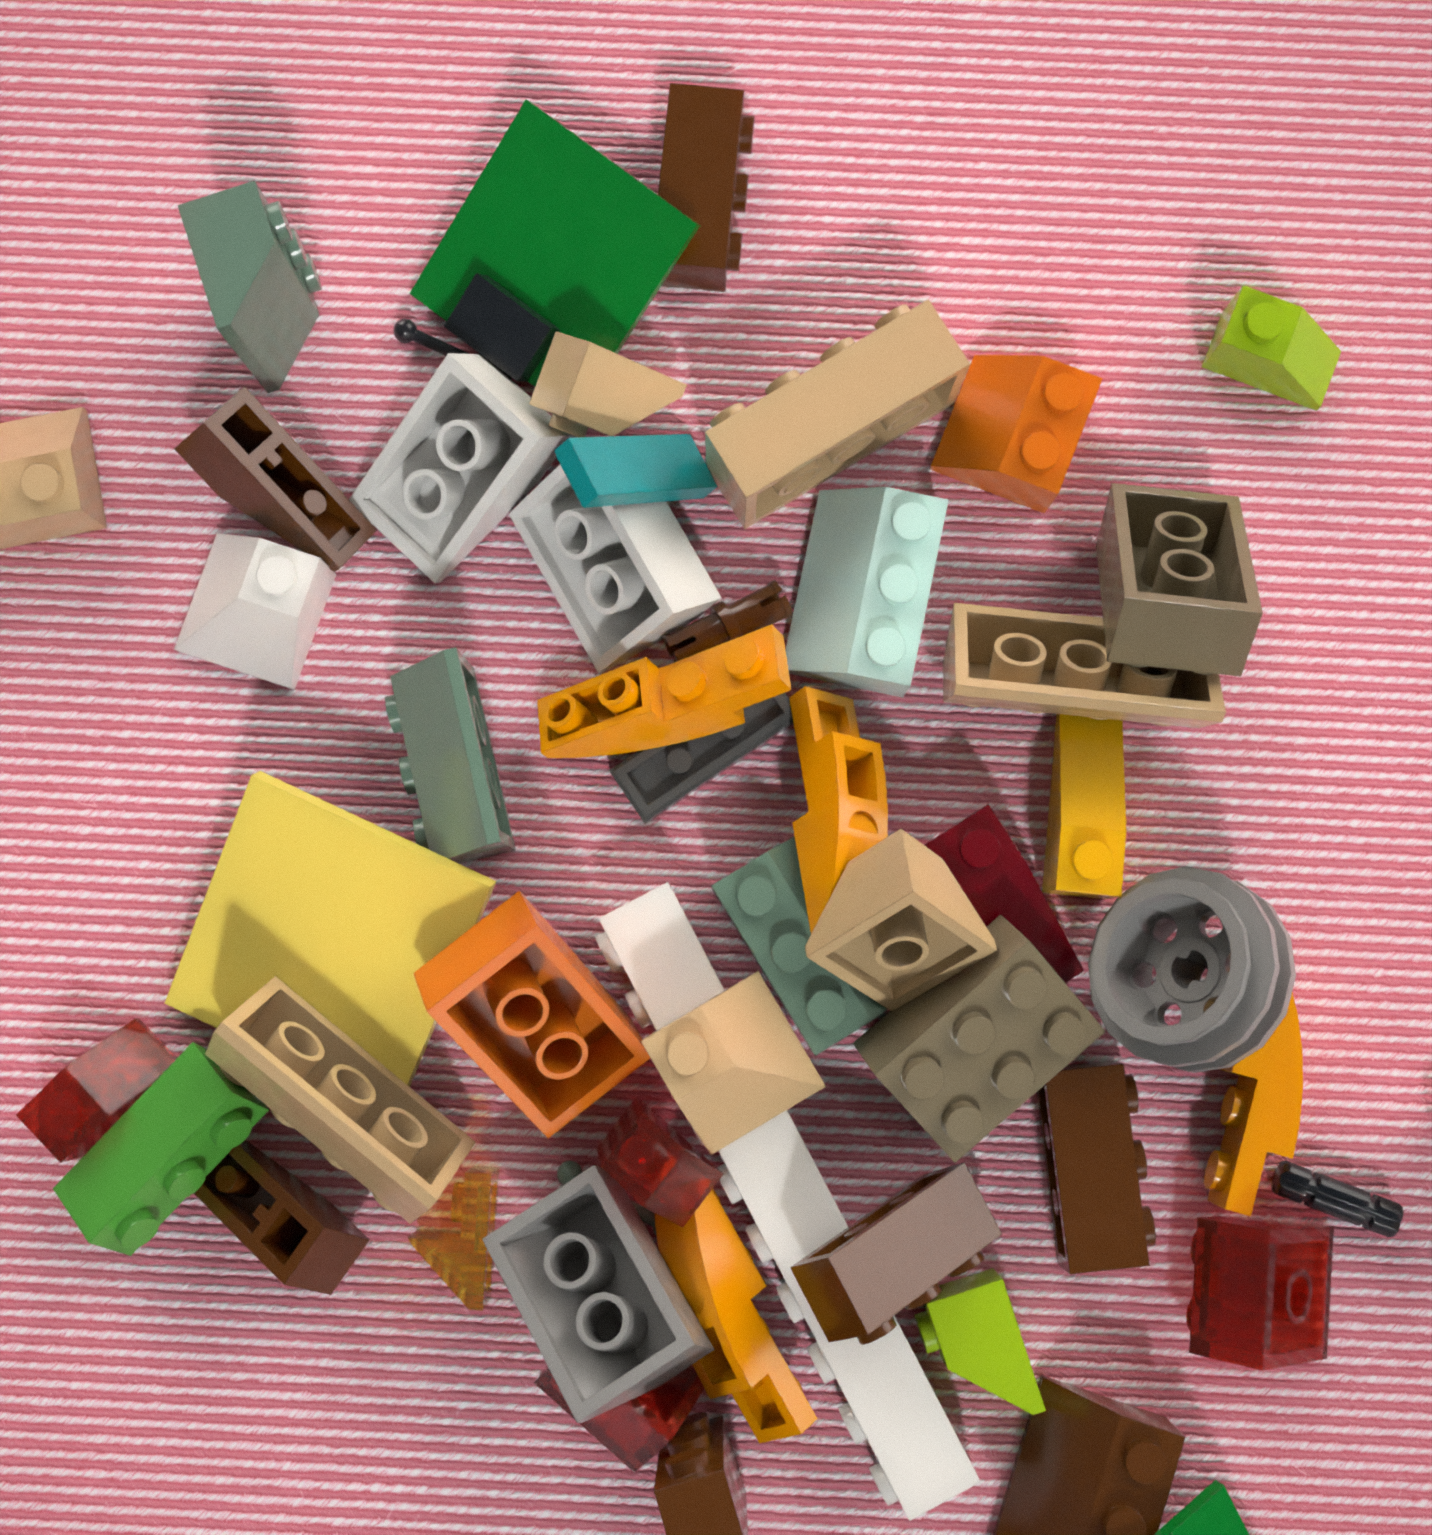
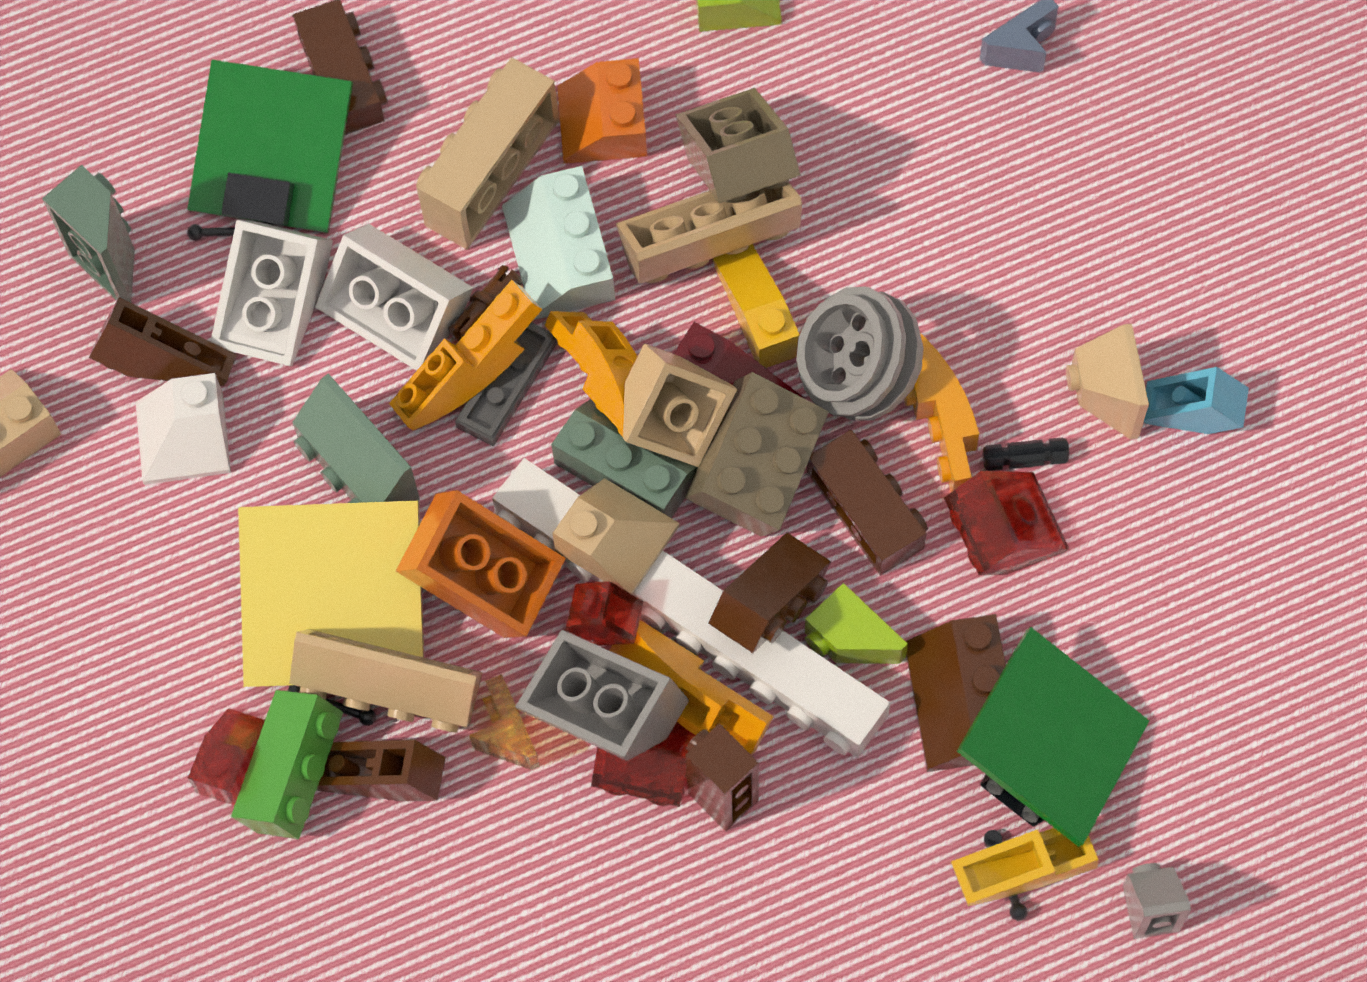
camera: 25 degrees left, 15 degrees down
(598, 388) = (336, 200): tan slope -> none
(634, 469) = (384, 233): teal tile -> none

